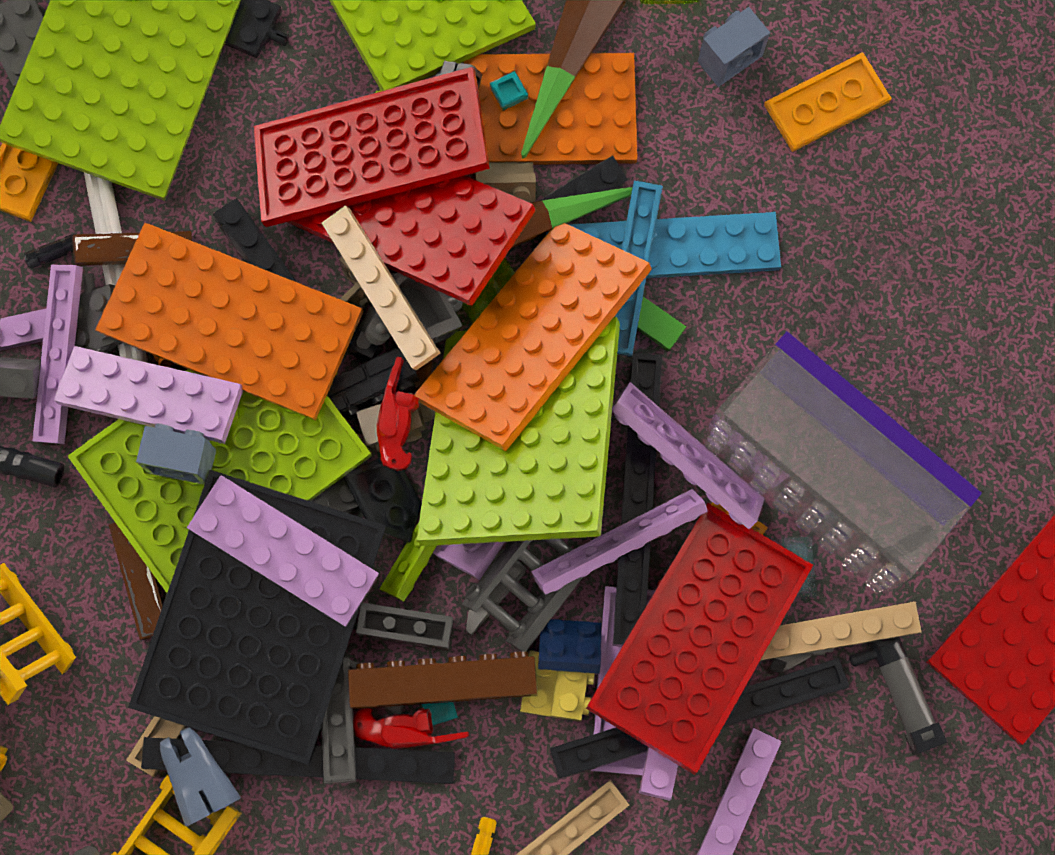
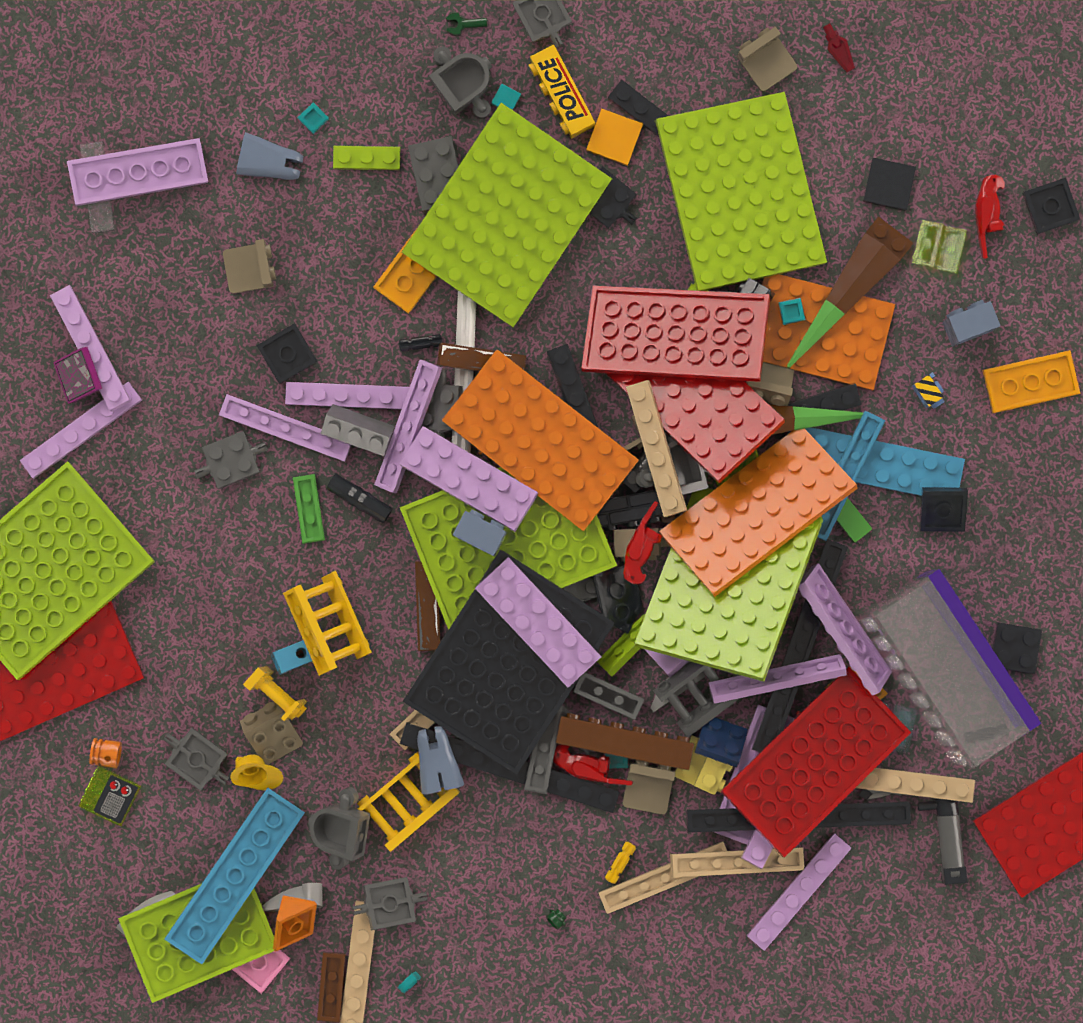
camera: 20 degrees right, 10 degrees up
(494, 734) = (649, 788): none -> dark tan bracket
(630, 804) = (731, 863): none -> tan plate
(706, 143) = (929, 391): none -> brick
(768, 277) = (943, 509): none -> black plate
(919, 416) = (1017, 647): none -> black plate

